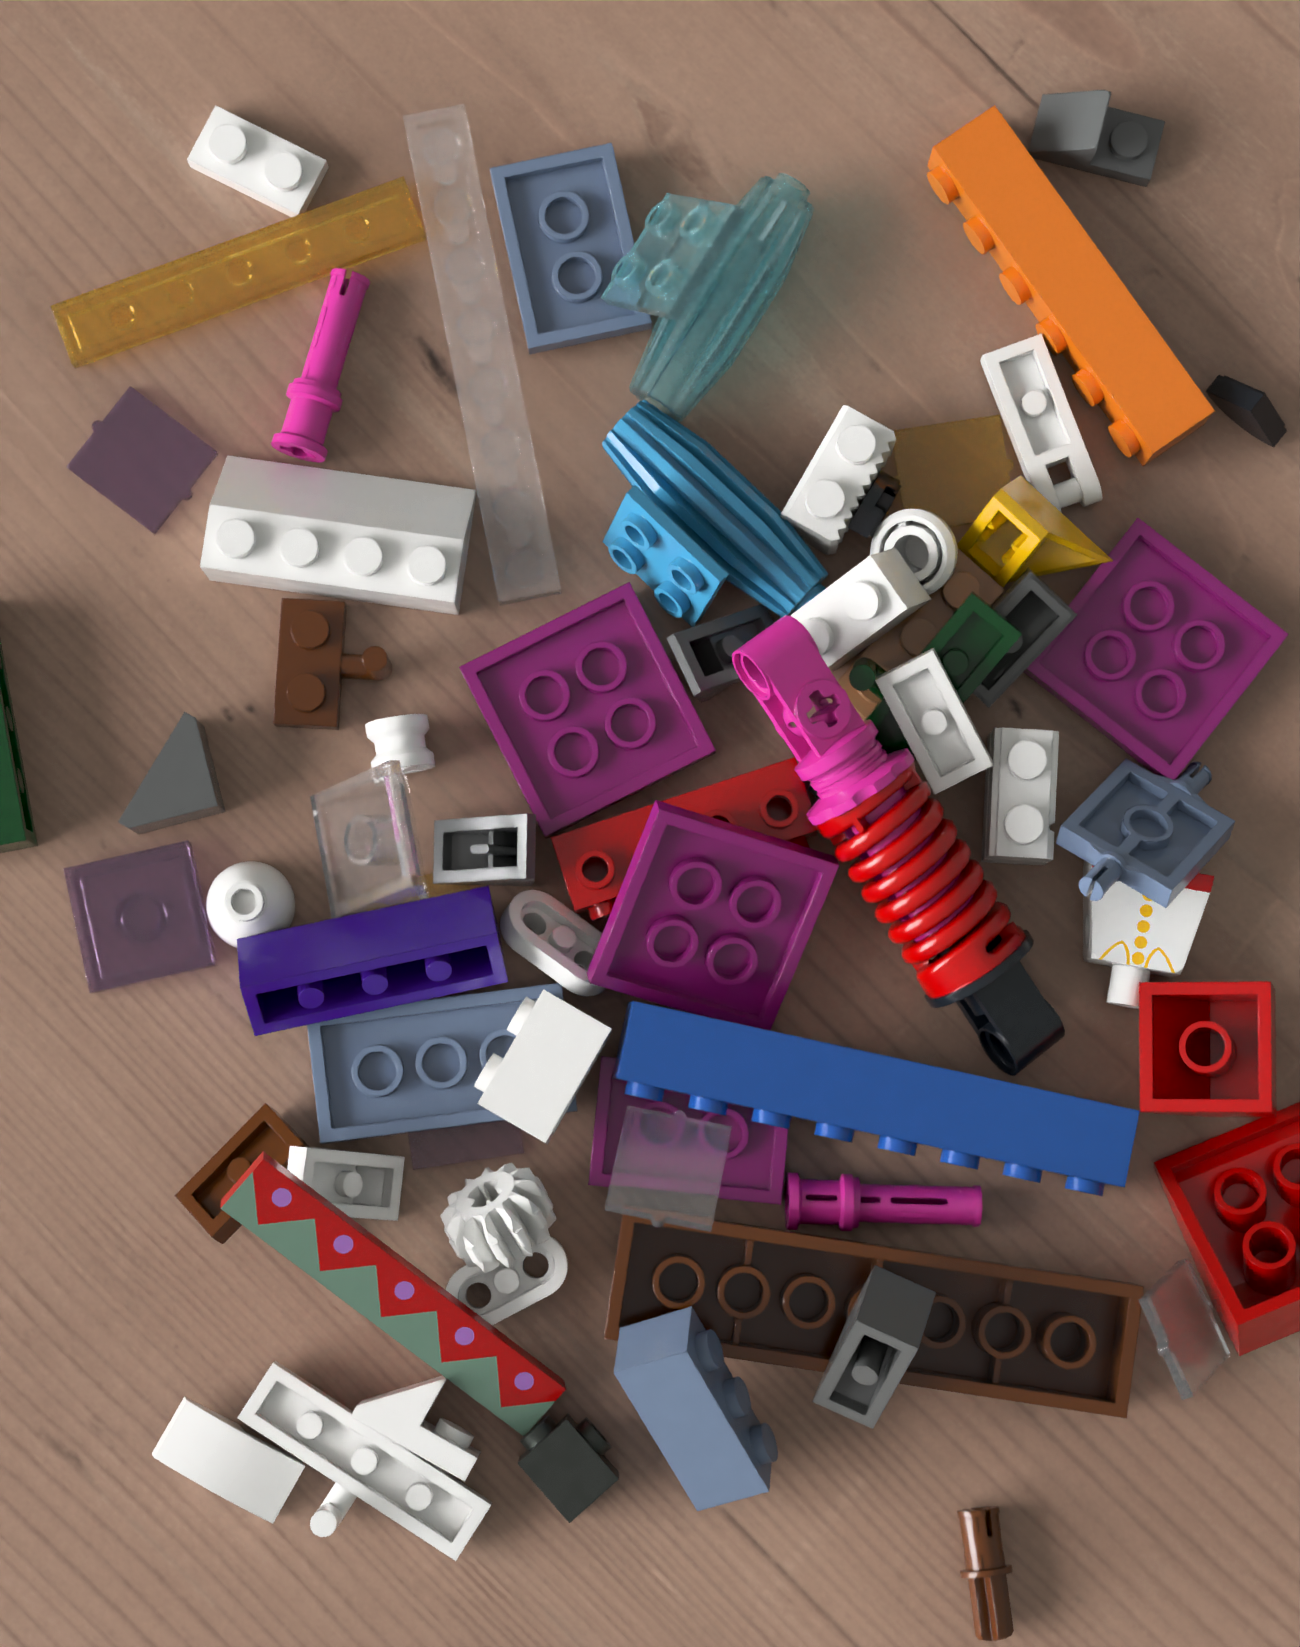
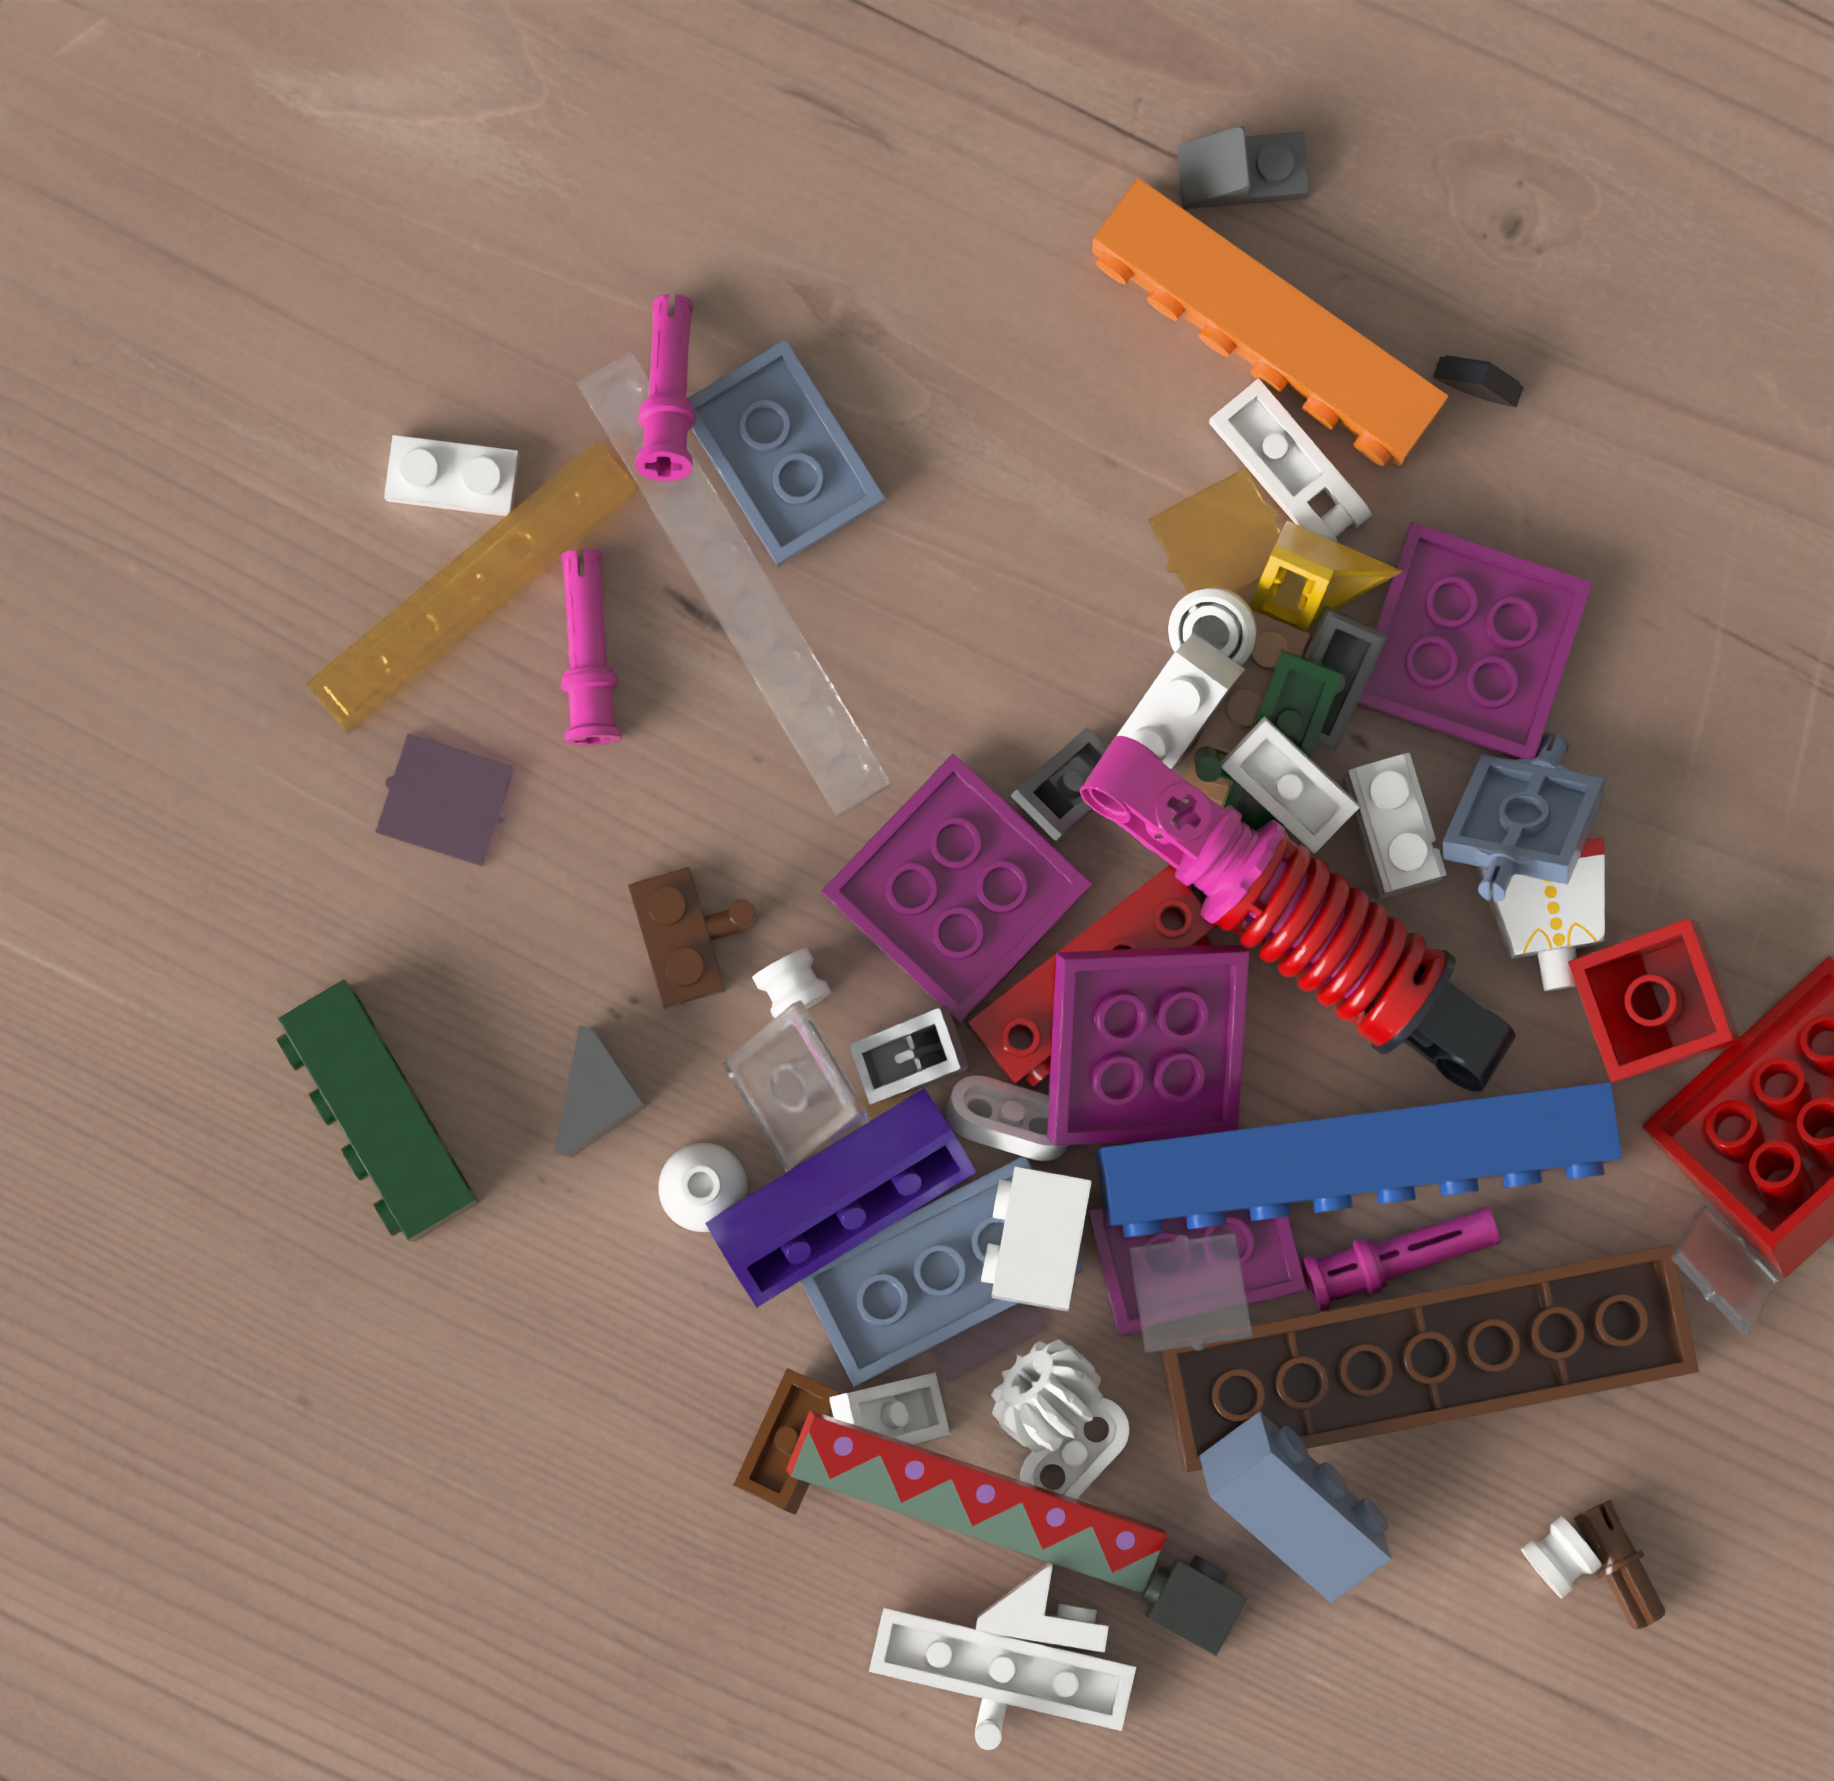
camera: 15 degrees left, 0 degrees up
(140, 917) = (603, 1235): clear purple tile -> none
(228, 1460) = (873, 1714): white slope -> none
(338, 534) = (661, 804): white slope -> none
(475, 168) = (667, 412): none -> dark pink pin
(700, 523) = (1002, 673): dark azure plate -> none
(709, 280) = (925, 444): clear light blue plate -> none
(838, 479) = (1116, 587): white brick -> none
(875, 505) = (1159, 597): black tile -> none
(875, 1347) = (1442, 1388): dark grey slope -> none
(932, 1545) = (1561, 1557): none -> white wheel

